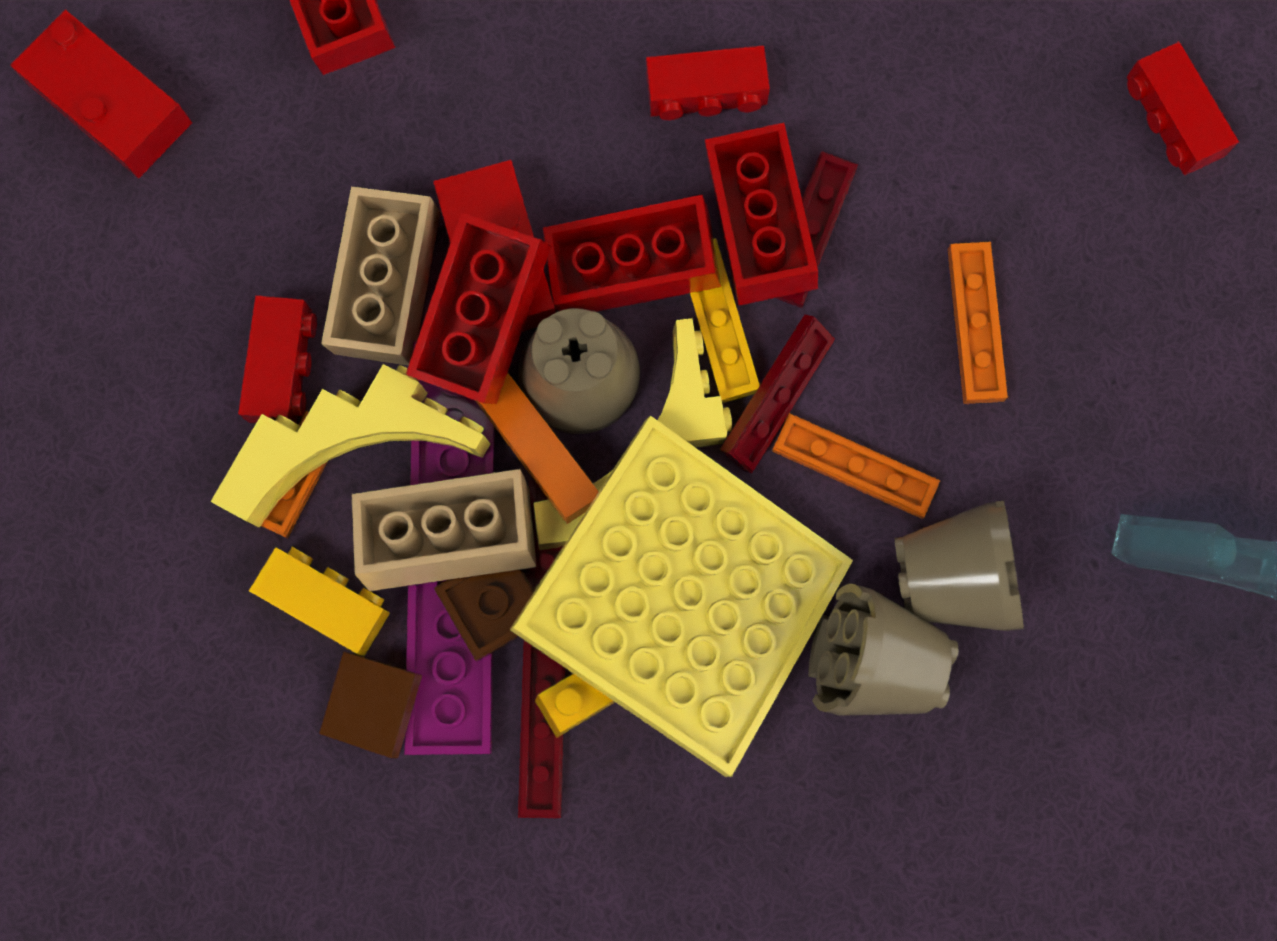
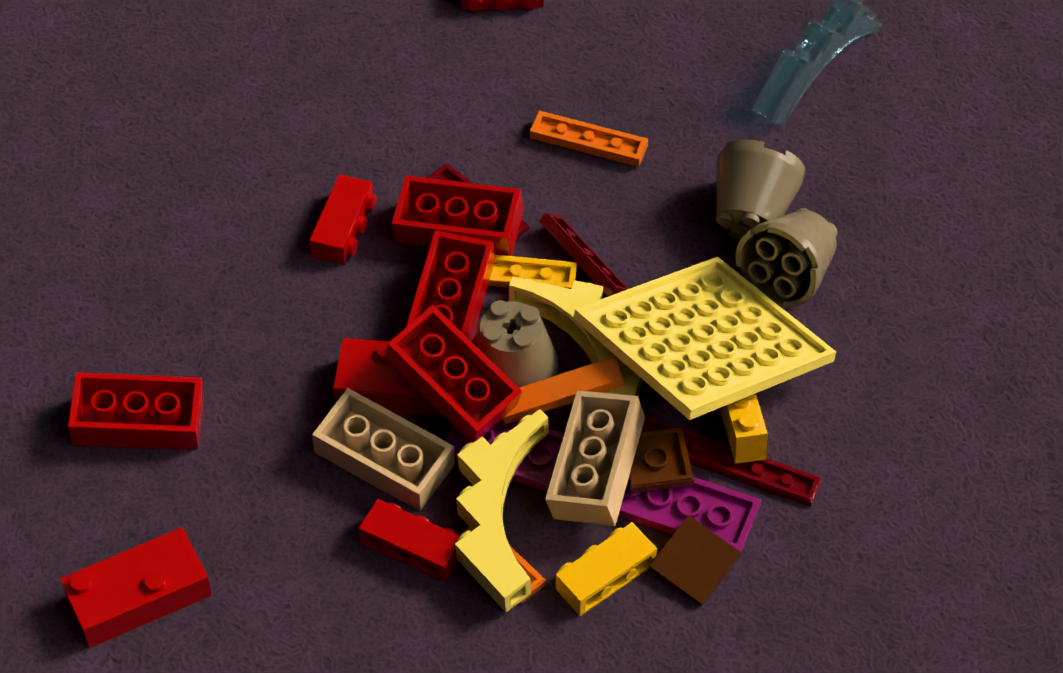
camera: 70 degrees left, 25 degrees down
(856, 466) = (653, 236): orange tile -> none

